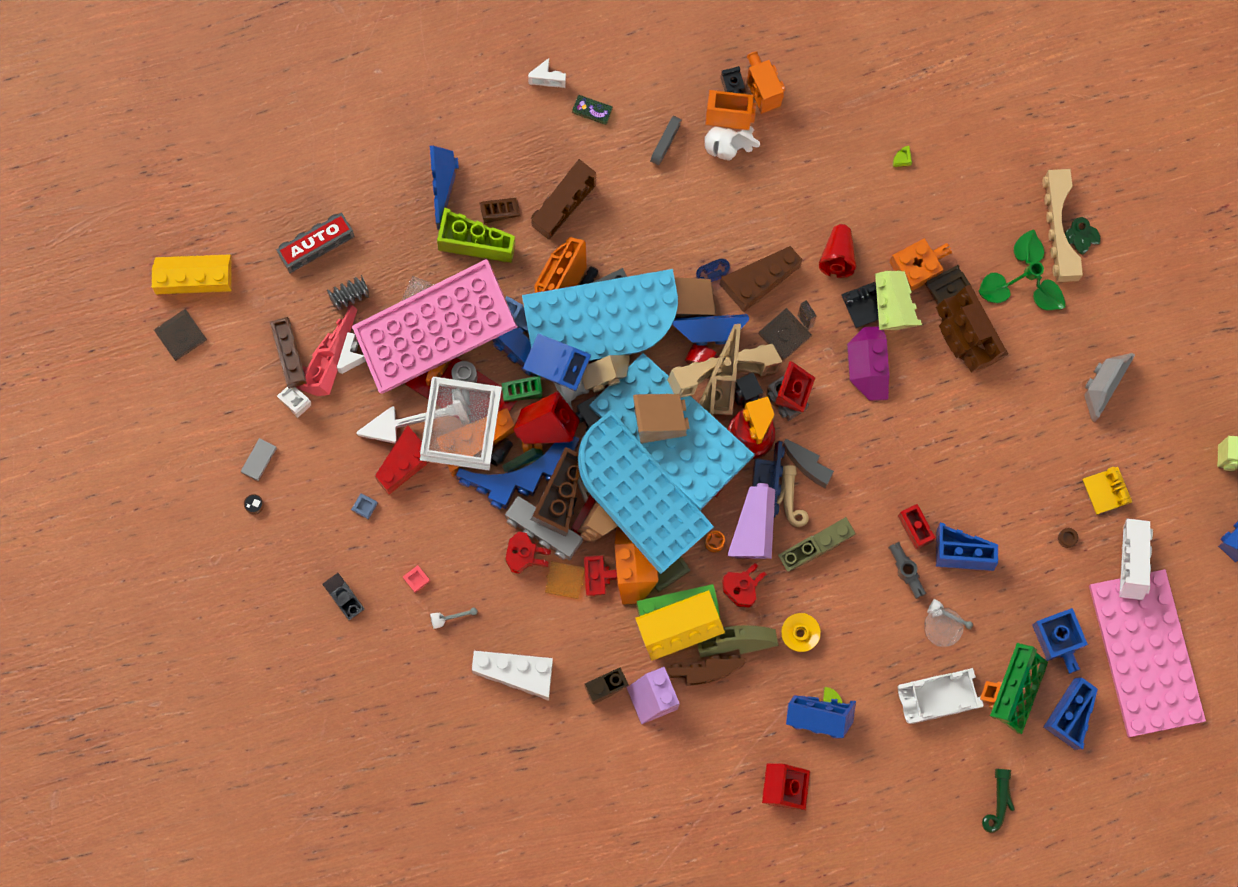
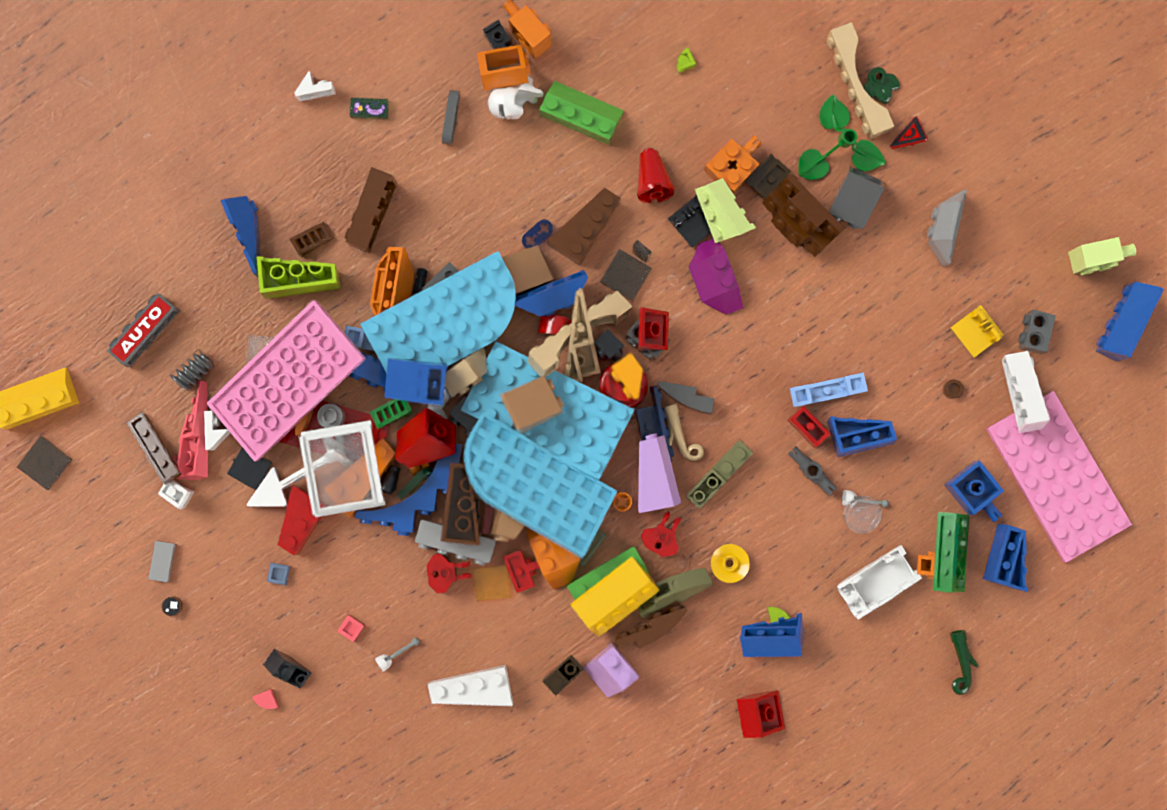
camera: 15 degrees left, 10 degrees up
(313, 620) = (266, 699): none -> coral tile
(369, 400) = (248, 471): none -> black piece
(789, 174) = (581, 112): none -> bright green slope
(946, 500) = (828, 390): none -> light blue slope
(1026, 330) = (856, 198): none -> dark grey slope
(1096, 289) = (911, 135): none -> piece
(1167, 510) = (1042, 334): none -> dark grey brick

